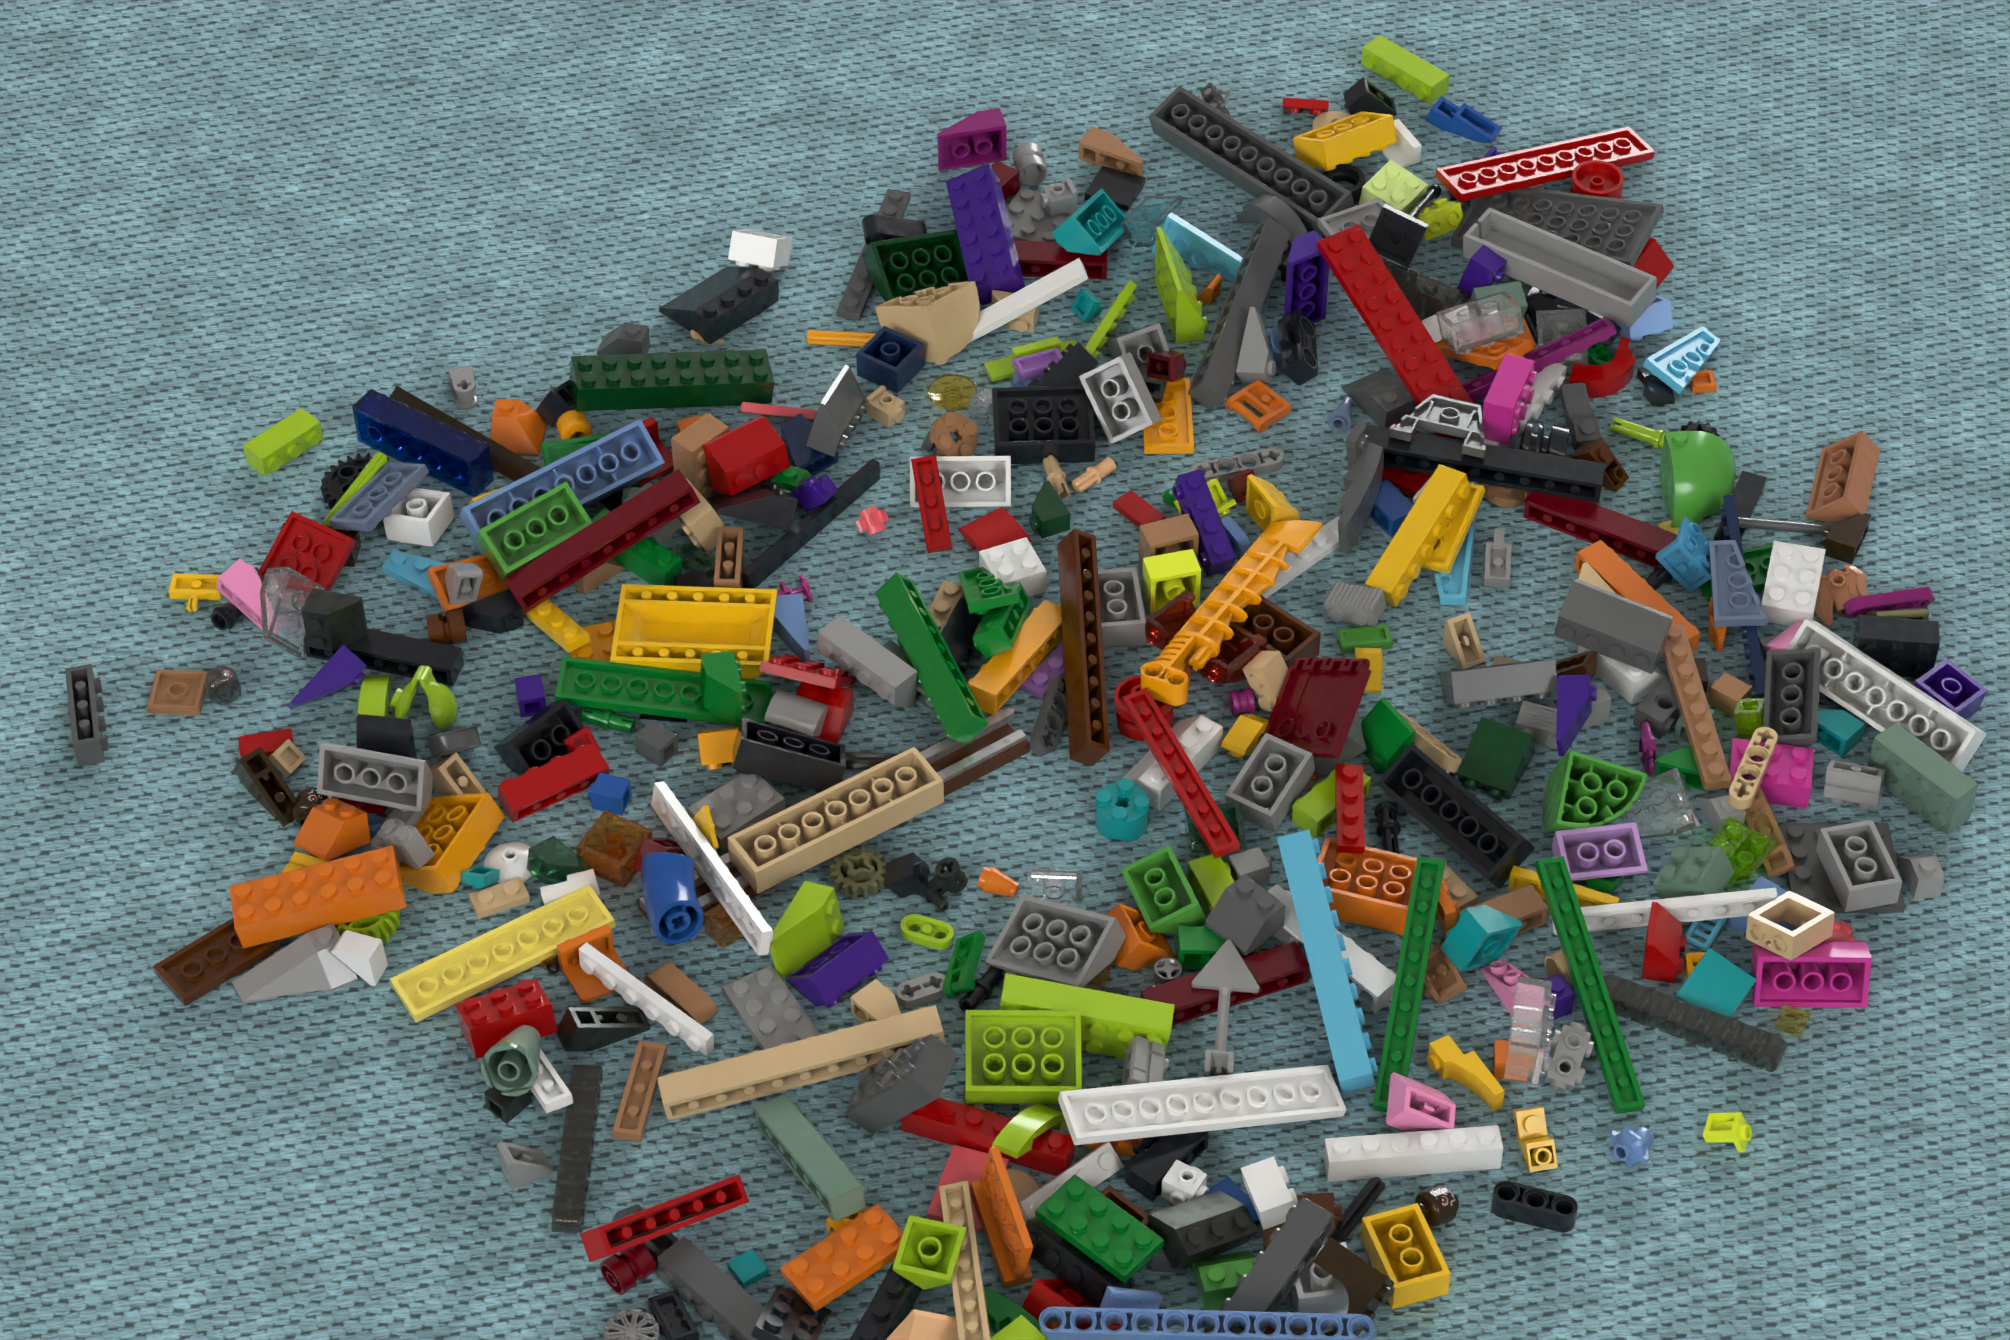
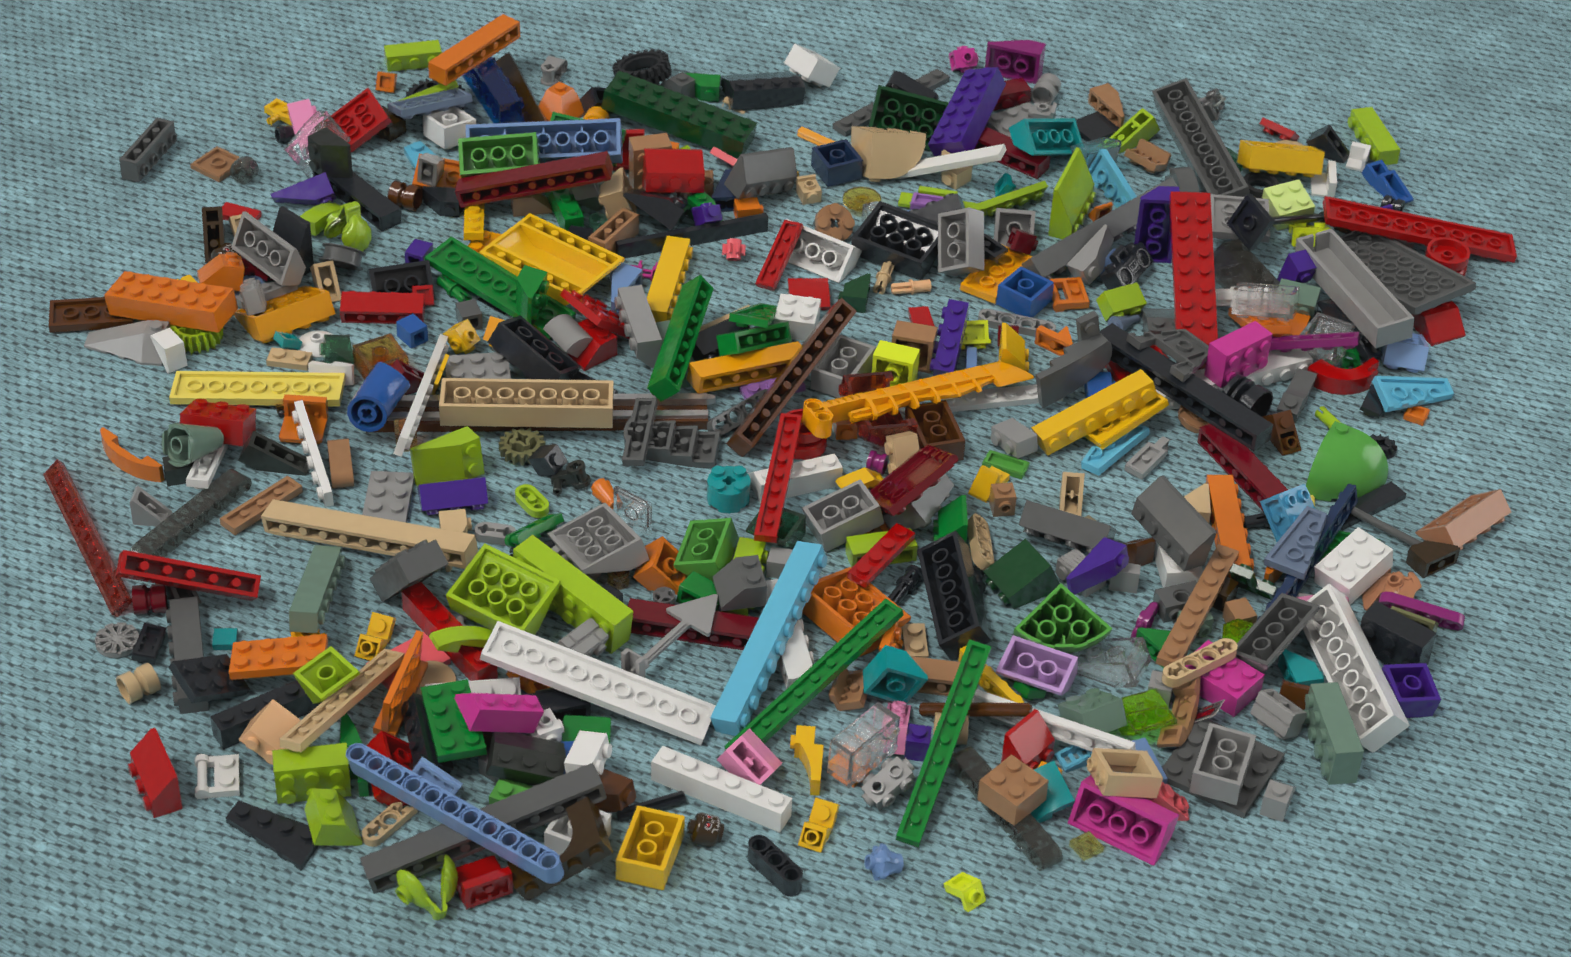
camera: 30 degrees right, 5 degrees down
(283, 491) = (386, 81): none -> orange tile
(381, 405) = (474, 49): none -> orange brick
(437, 1118) = (144, 469): none -> orange slope
(483, 1233) = (87, 538): none -> clear red plate
(563, 324) = (656, 62): none -> black tyre
(663, 327) = (706, 86): none -> green slope
(678, 773) = (462, 337): none -> yellow brick
(829, 583) = (669, 276): none -> yellow brick
(842, 465) = (747, 207): none -> orange brick
(908, 1178) = (377, 636): none -> yellow slope
(911, 165) = (963, 59): none -> dark pink brick
(1006, 788) = (665, 441): none -> dark grey slope
(1144, 1191) = (500, 712): none -> dark pink slope
(1165, 172) = (1140, 126): none -> lime slope
(1204, 198) = (1149, 156): none -> medium nougat bracket
(1221, 426) = (1024, 292): none -> blue brick
(1222, 1161) = (574, 724): none -> green slope
(1301, 470) = (1052, 340): none -> orange slope
(1325, 390) = (1121, 301): none -> lime brick
(1402, 681) = (1002, 499): none -> medium nougat brick
(1409, 101) = (1358, 156): none -> white panel
(1484, 145) = (1398, 204): none -> black wheel
(1594, 927) = (982, 709): none -> reddish brown axle
(1698, 1000) = (1012, 790): none -> medium nougat brick
(1717, 650) = (1248, 581): none -> dark green plate
(1791, 814) = (1208, 711): none -> sticker
(1849, 751) = (1294, 692): none -> reddish brown tile

